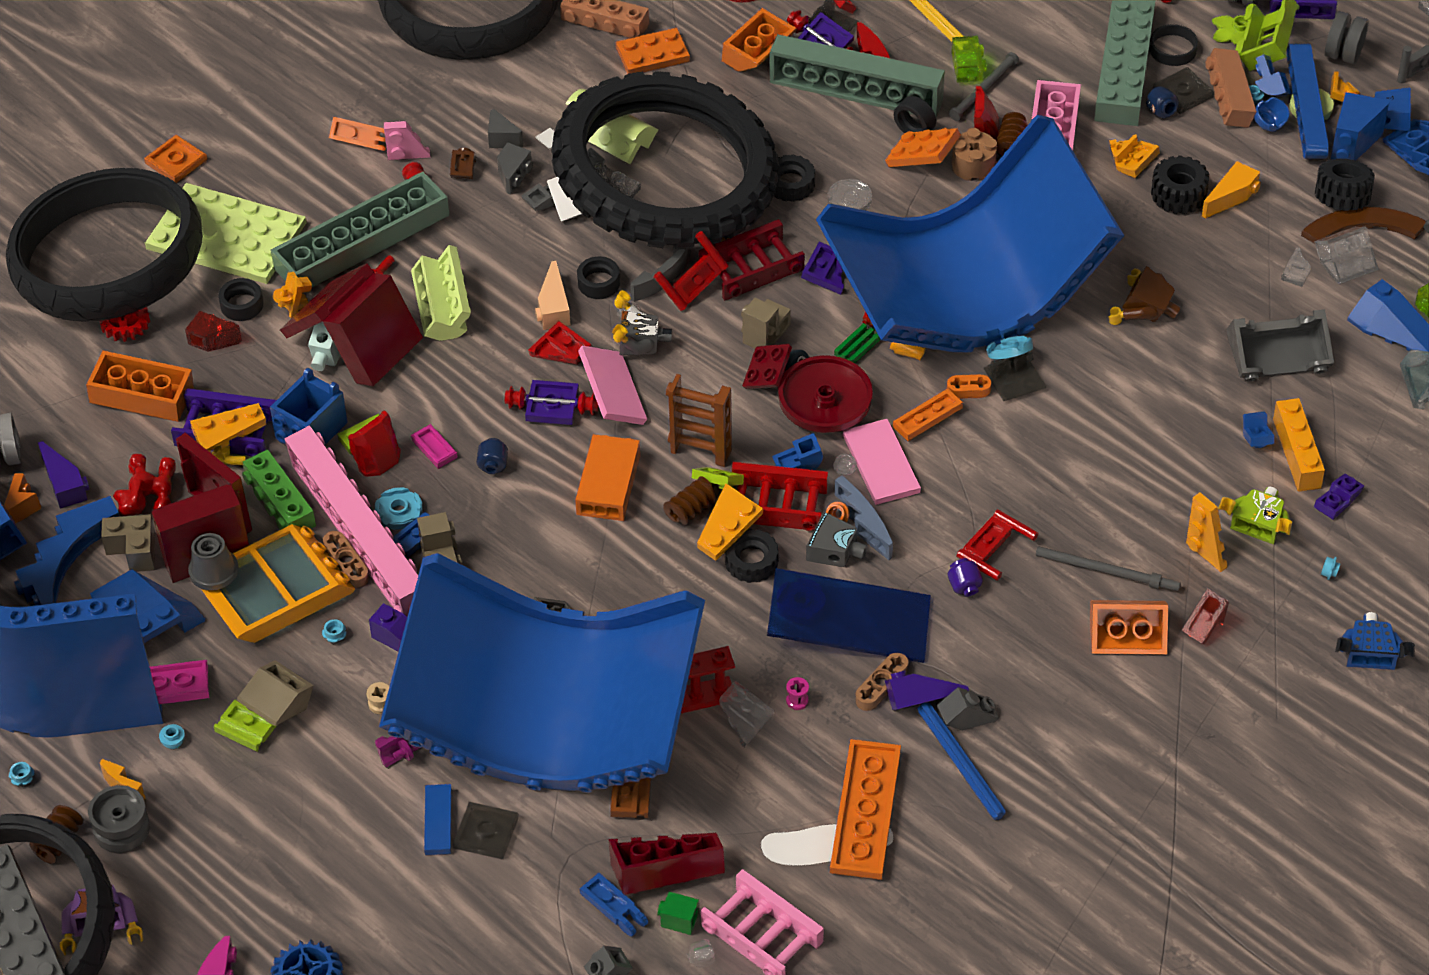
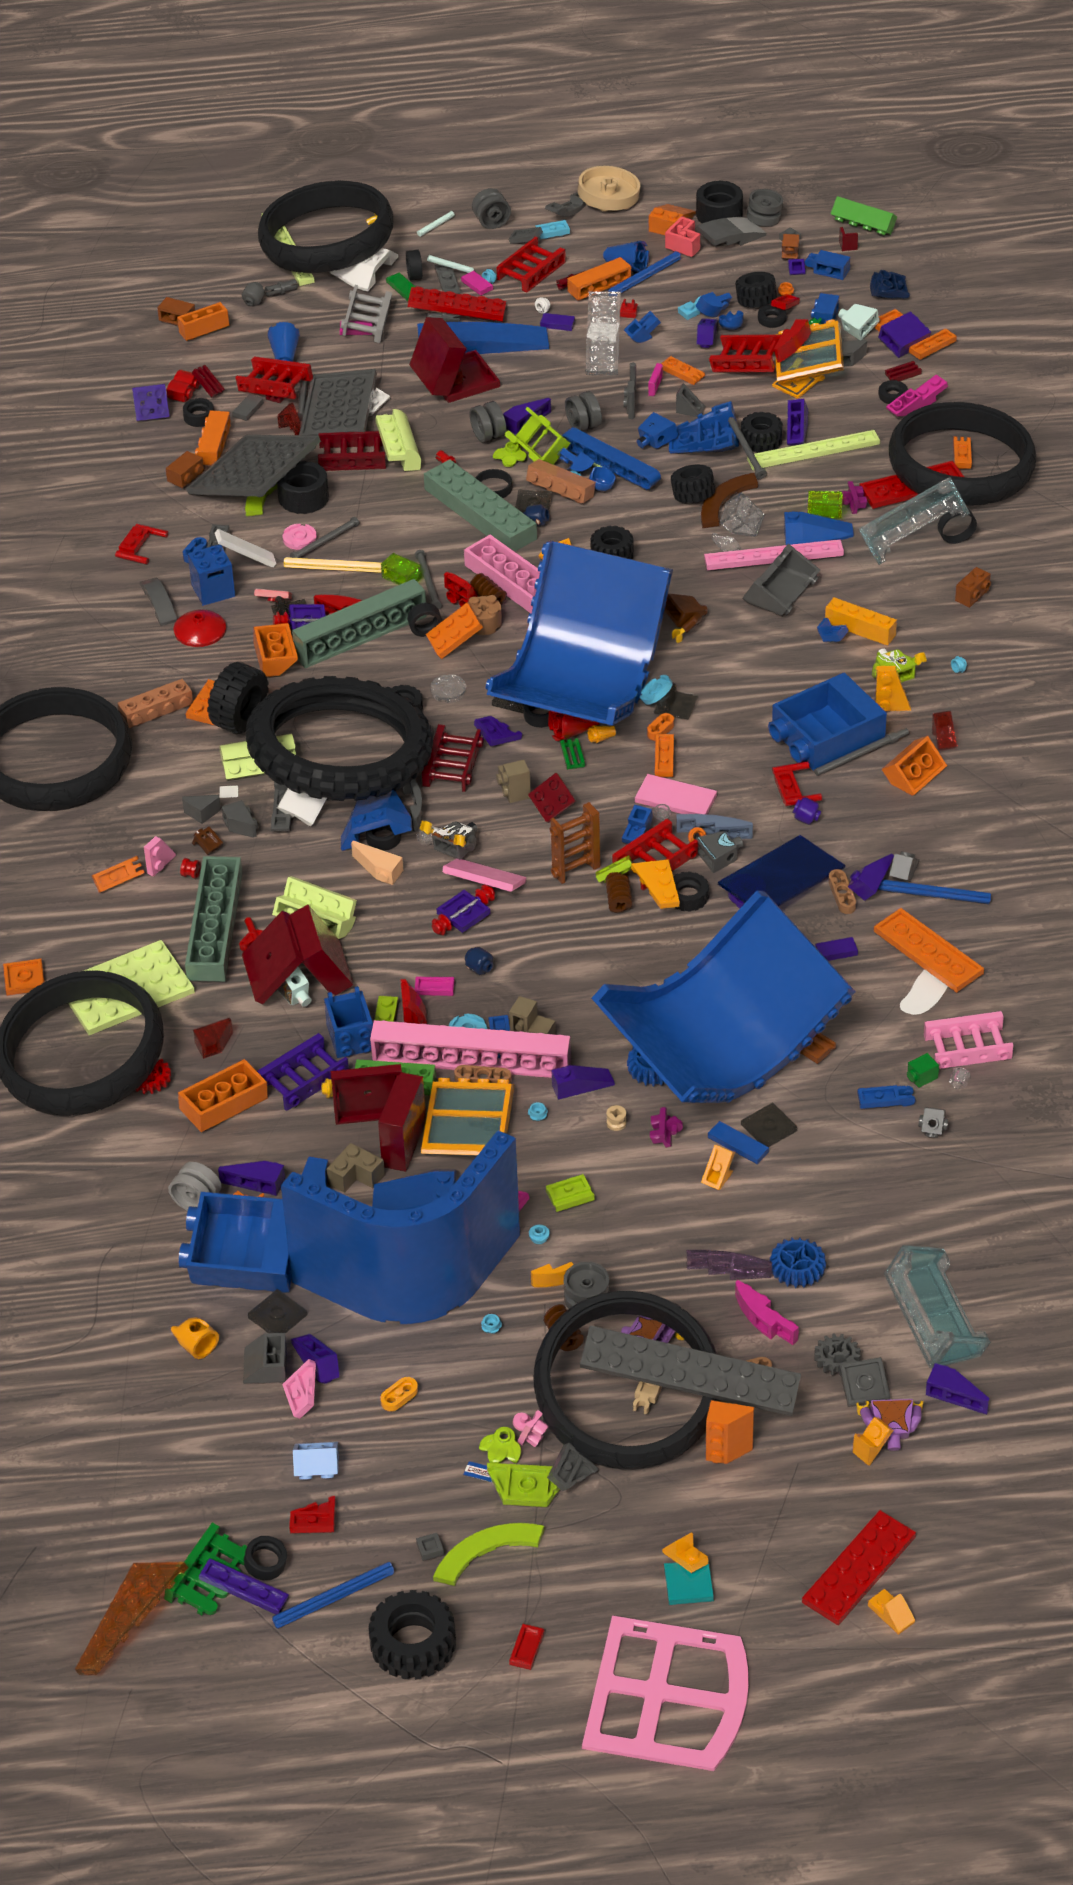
camera: 50 degrees left, 5 degrees down
(142, 483) = (316, 1135): red animal -> none
(212, 563) = (433, 1130): dark grey piece -> none
(222, 427) = (316, 1068): light orange wing -> none
(237, 287) = (194, 999): black tyre -> none
(255, 918) = (735, 1264): none -> clear purple slope
(276, 693) = (567, 1160): dark tan slope -> none
(291, 294) = (232, 978): light orange hips -> none
(380, 824) = (718, 1167): none -> light orange slope
(559, 345) = (421, 881): red wing -> none
(606, 256) = (374, 814): none -> blue wedge
(608, 477) = (555, 919): orange brick -> none
(647, 38) = (236, 696): none -> black tyre
(665, 861) = (881, 1055): dark red wedge -> none
(697, 277) = (442, 786): red plate -> none
(792, 729) = (838, 948): none -> dark purple tile
(801, 692) = (815, 928): dark pink bush -> none
(825, 394) = (603, 783): dark red dish -> none
(1105, 510) = (827, 721): none -> blue brick
(1232, 190) = (638, 524): light orange slope -> none
(1338, 323) = (768, 554): none -> bright pink plate
(1339, 88) = (618, 441): light orange tile -> none
(1339, 497) = (911, 630): dark purple slope -> none
(1359, 125) = (654, 449): blue slope -> none
(1373, 644) = (1033, 680): blue torso -> none

